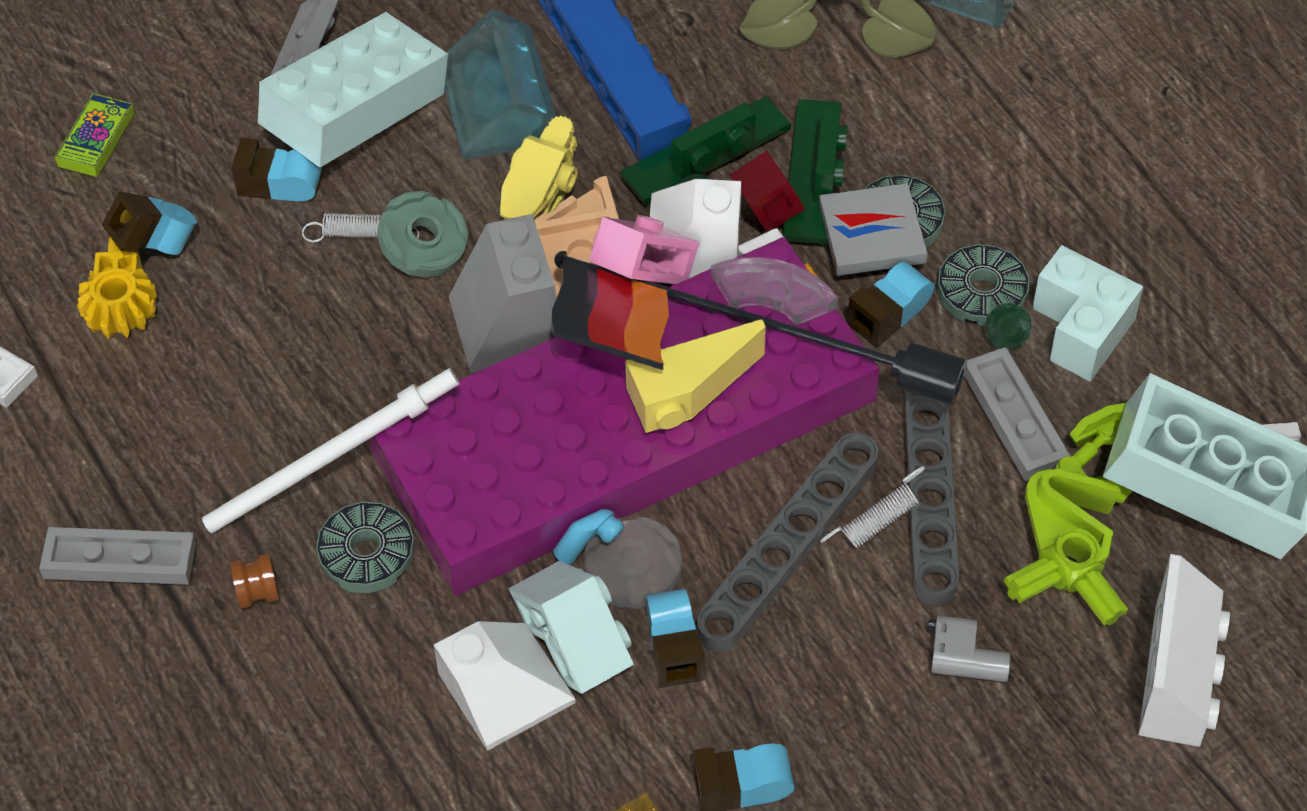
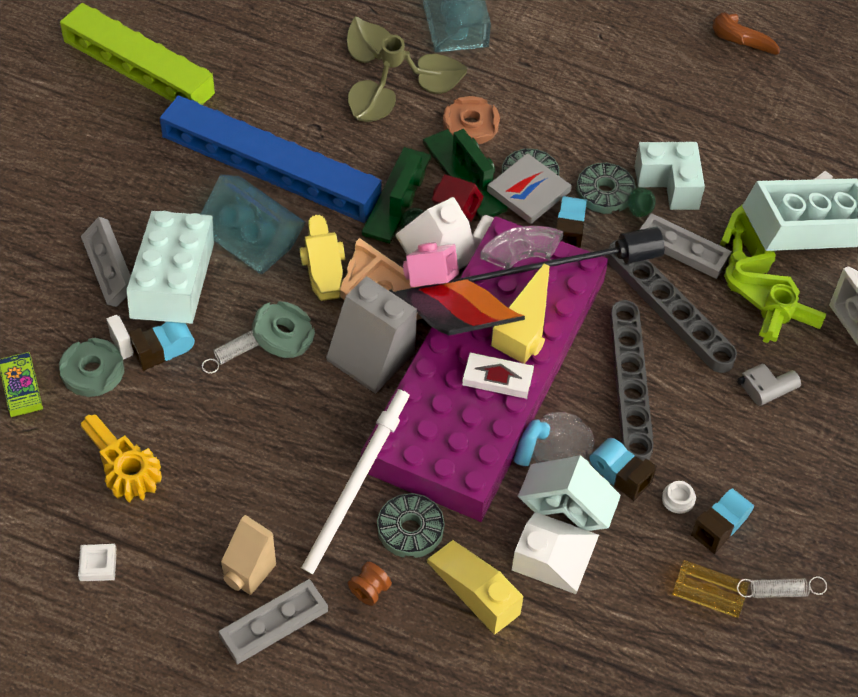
camera: 40 degrees left, 0 degrees up
(144, 466) = (248, 556): none -> tan slope
(152, 225) = (122, 414): leg -> none
(187, 178) = (91, 382): none -> sand green tile
(237, 127) = (120, 336): none -> white tile
(372, 664) = (478, 585): none -> light yellow slope
(596, 426) = (498, 375): none -> white tile
(714, 716) = (679, 497): none -> white plate
(886, 127) = (476, 108): none -> nougat tile
(886, 517) = (662, 351): white piece -> none

